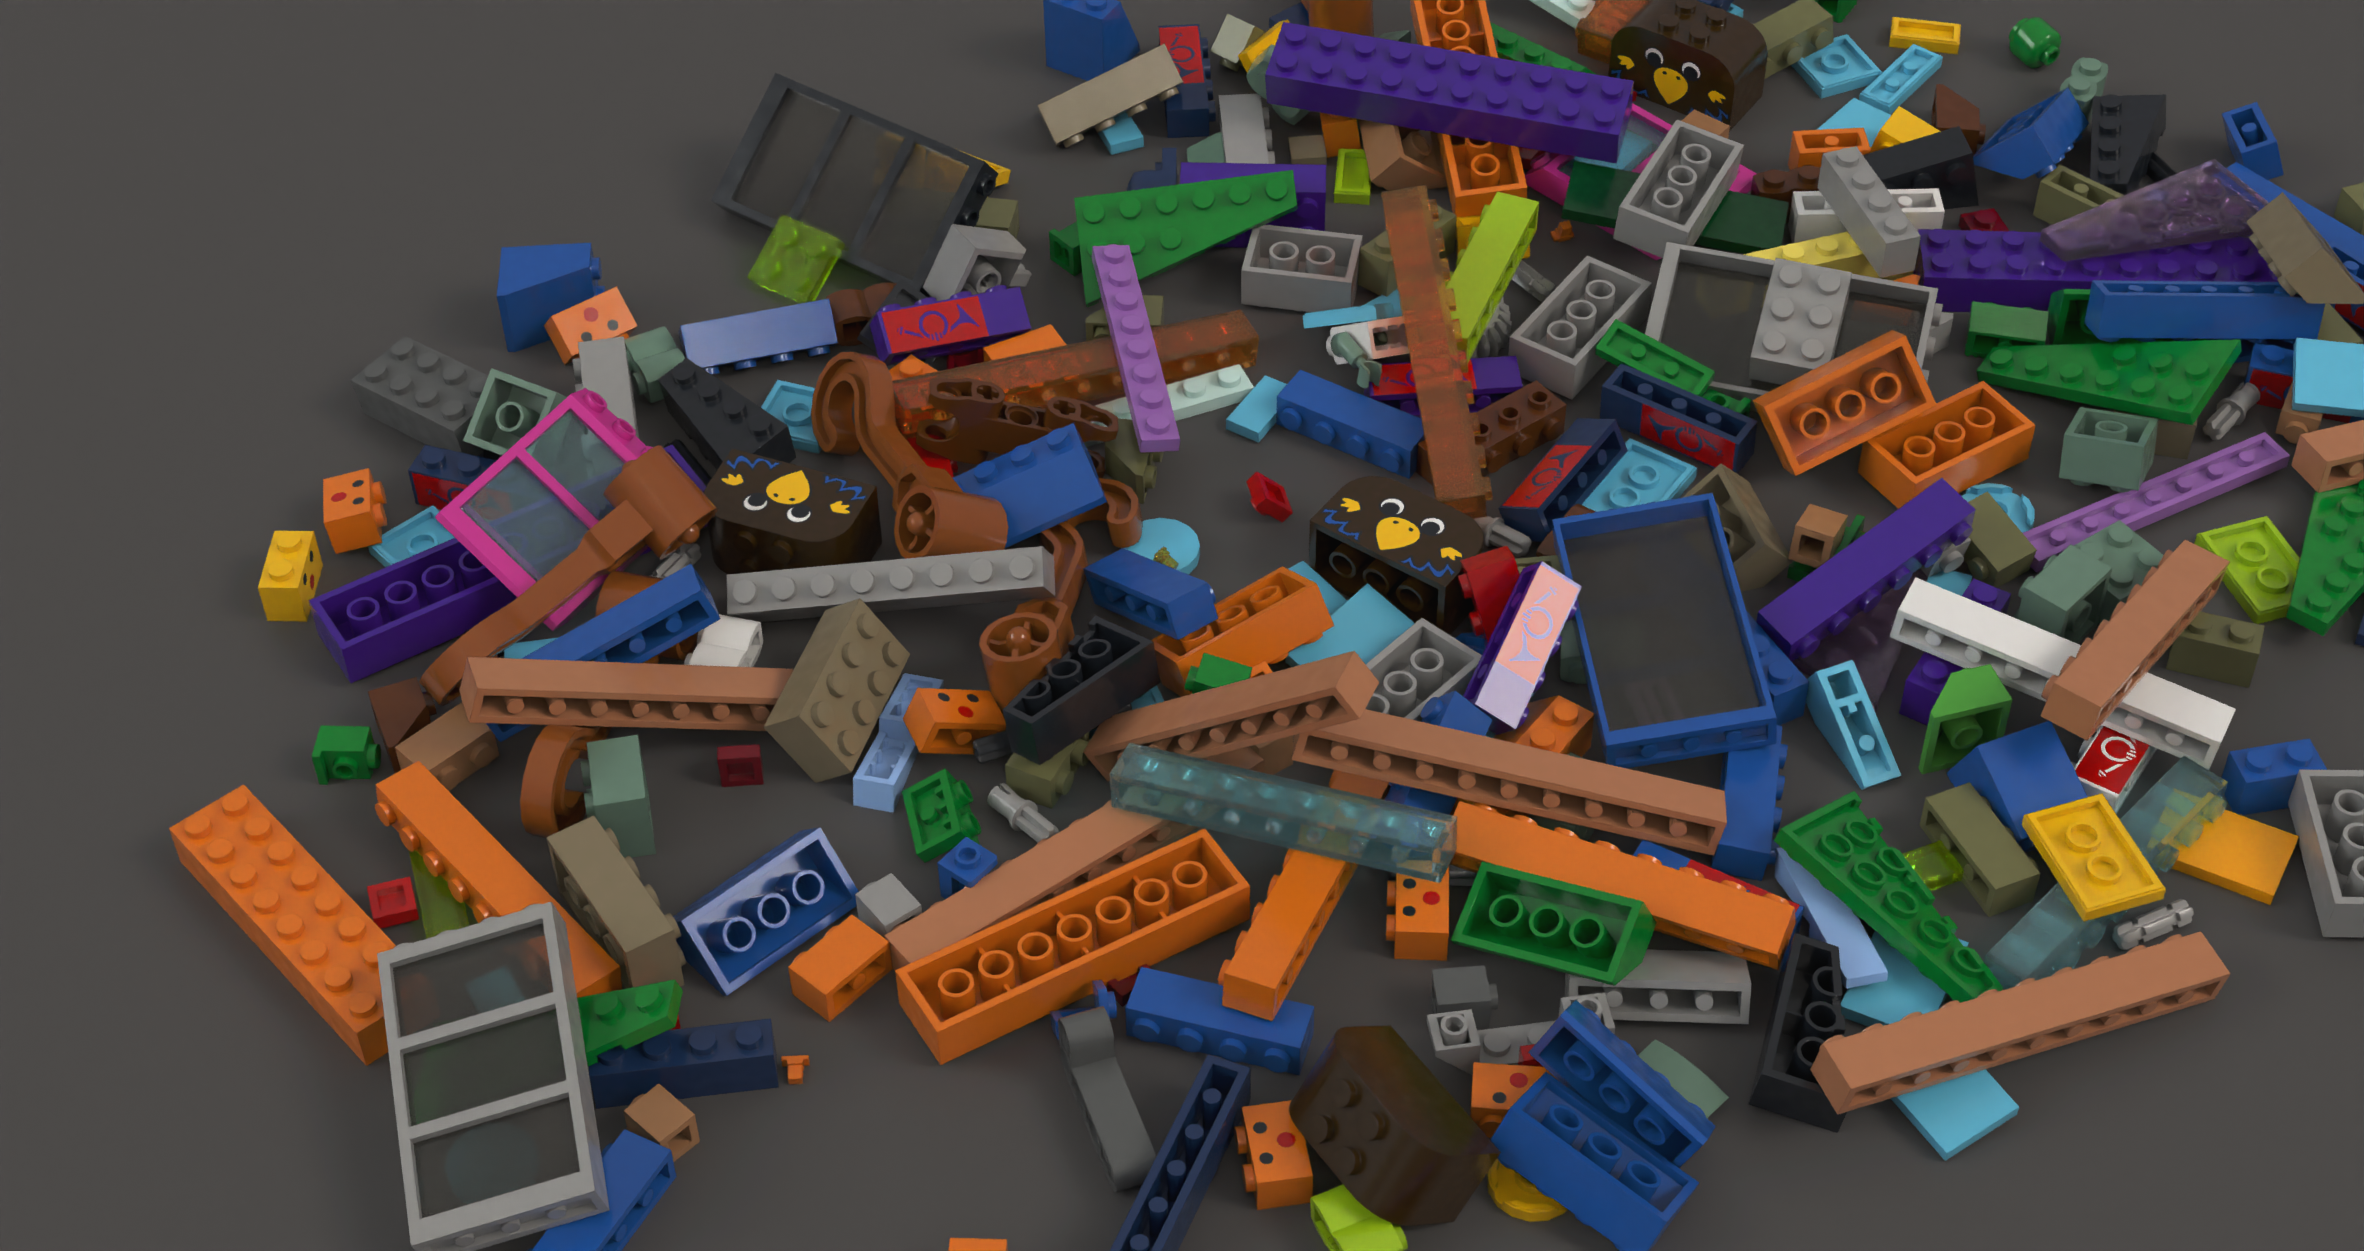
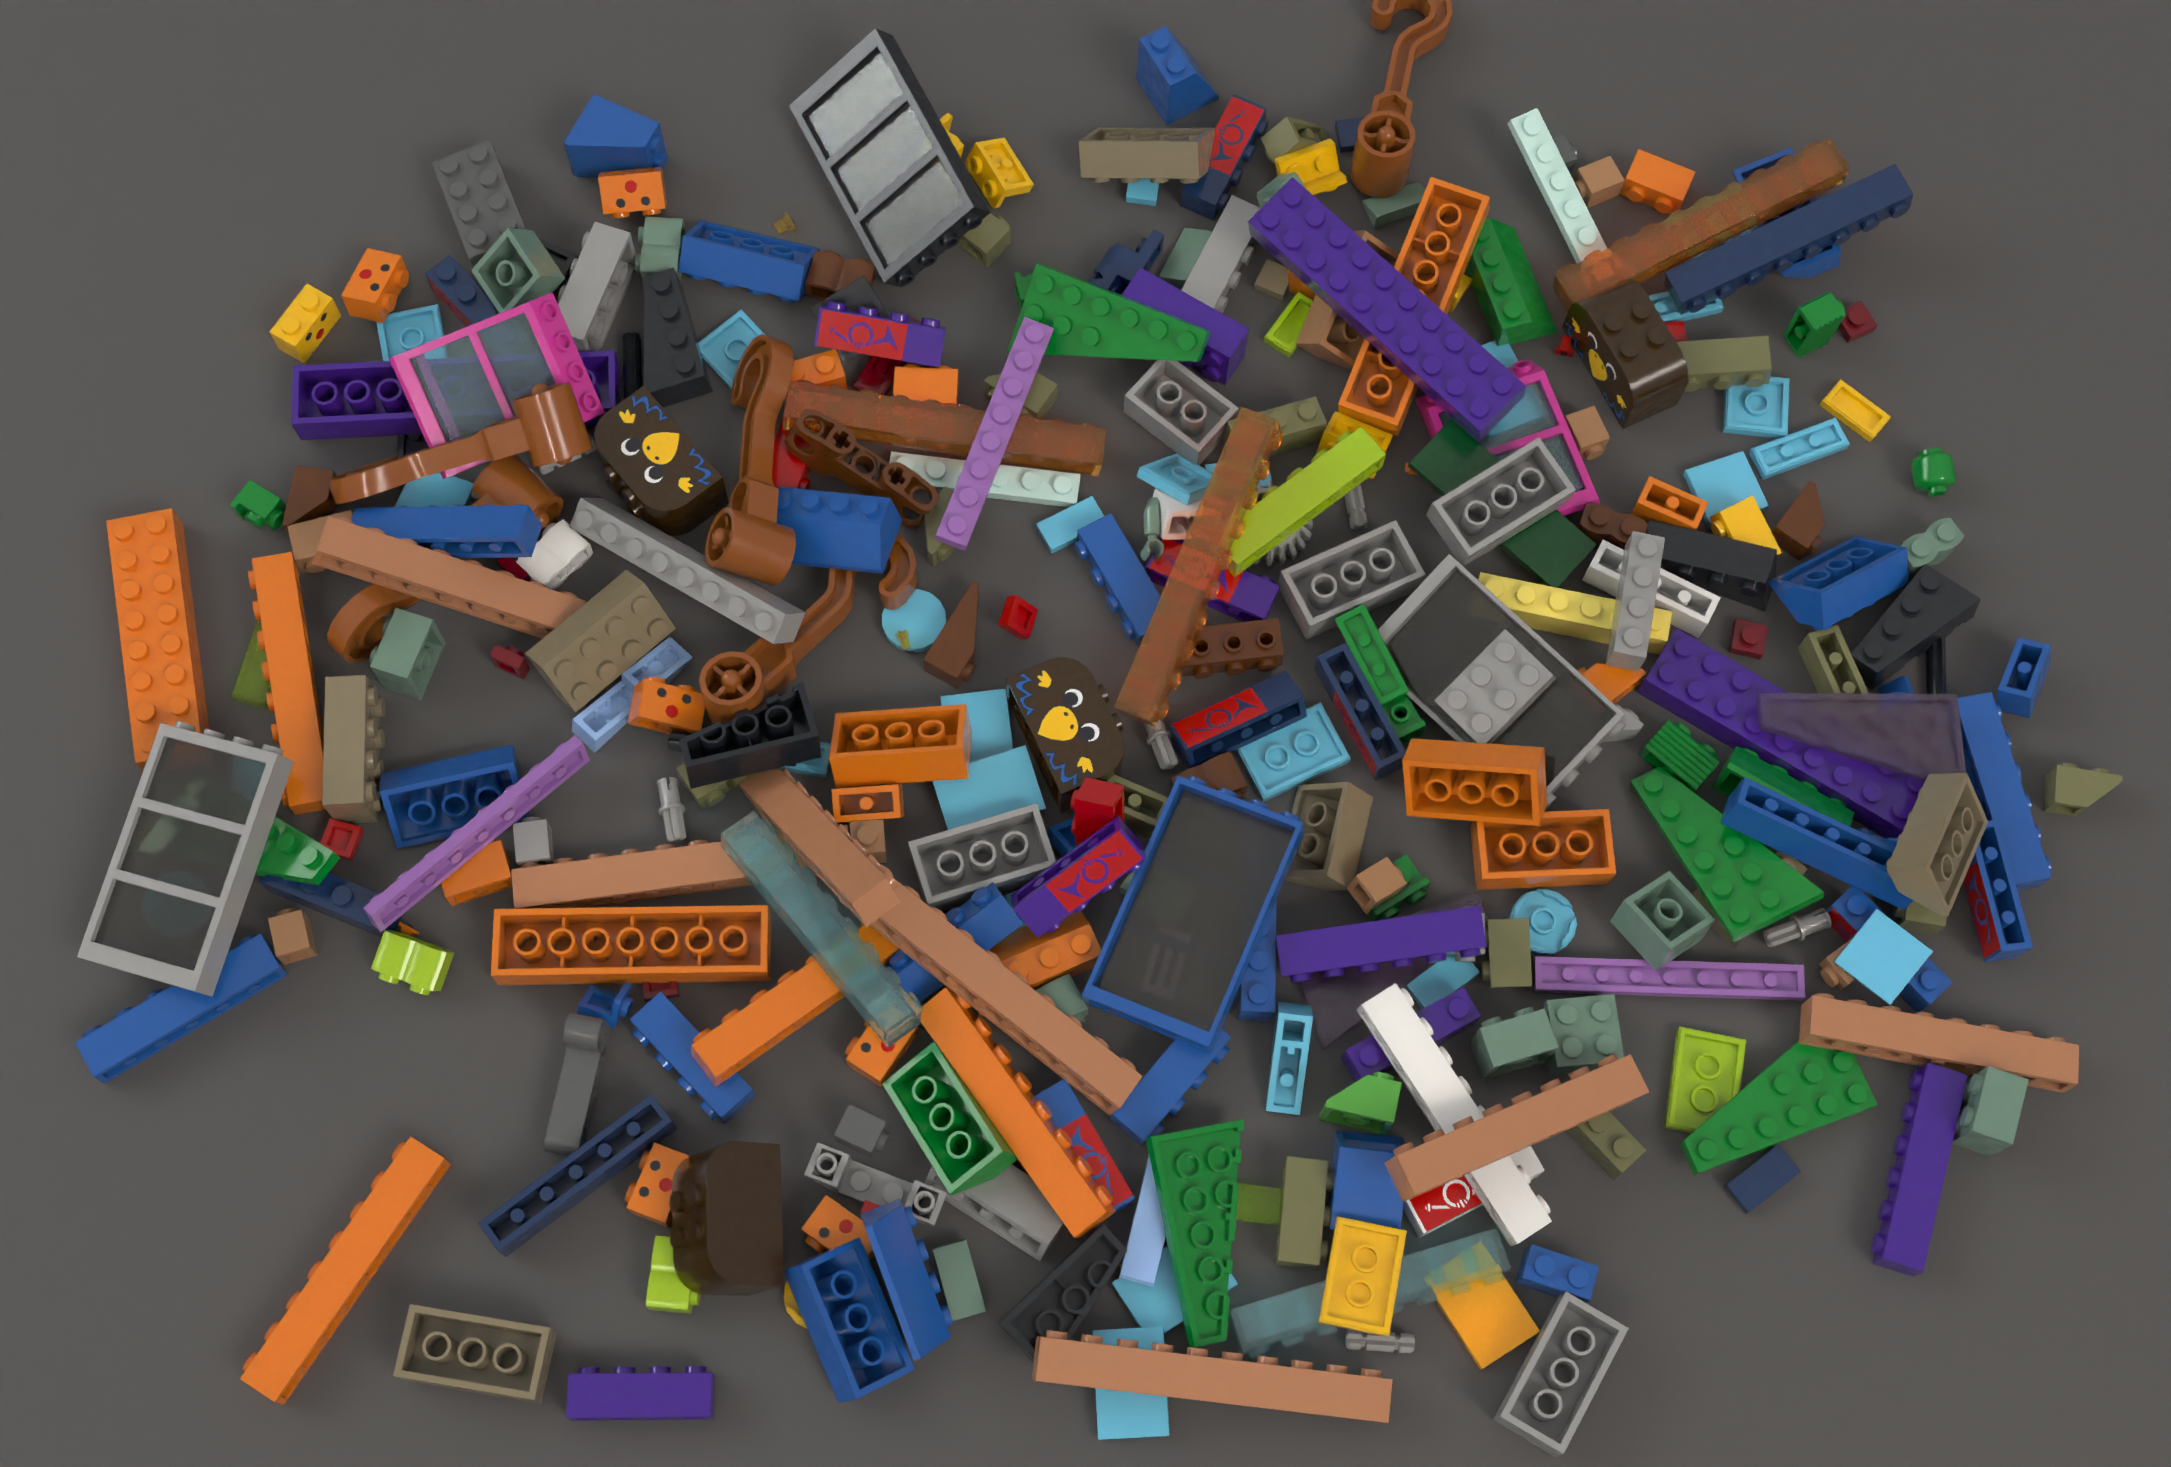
camera: 25 degrees right, 25 degrees up
(393, 902) = (226, 653): red plate -> none
(772, 299) = (785, 224): none -> clear yellow piece
(796, 260) = (816, 200): clear neon green plate -> none
(822, 914) = (476, 834): none -> medium lavender plate
(825, 1080) = (412, 961): none -> lime brick
(940, 814) = (617, 781): green bracket -> none
(964, 867) = (599, 840): blue bracket -> none
(976, 261) = (932, 289): light grey hinge -> none
(1151, 593) = (863, 674): blue brick -> none
(1215, 673) = (846, 794): green brick -> none
(1225, 543) = (953, 651): none -> reddish brown slope

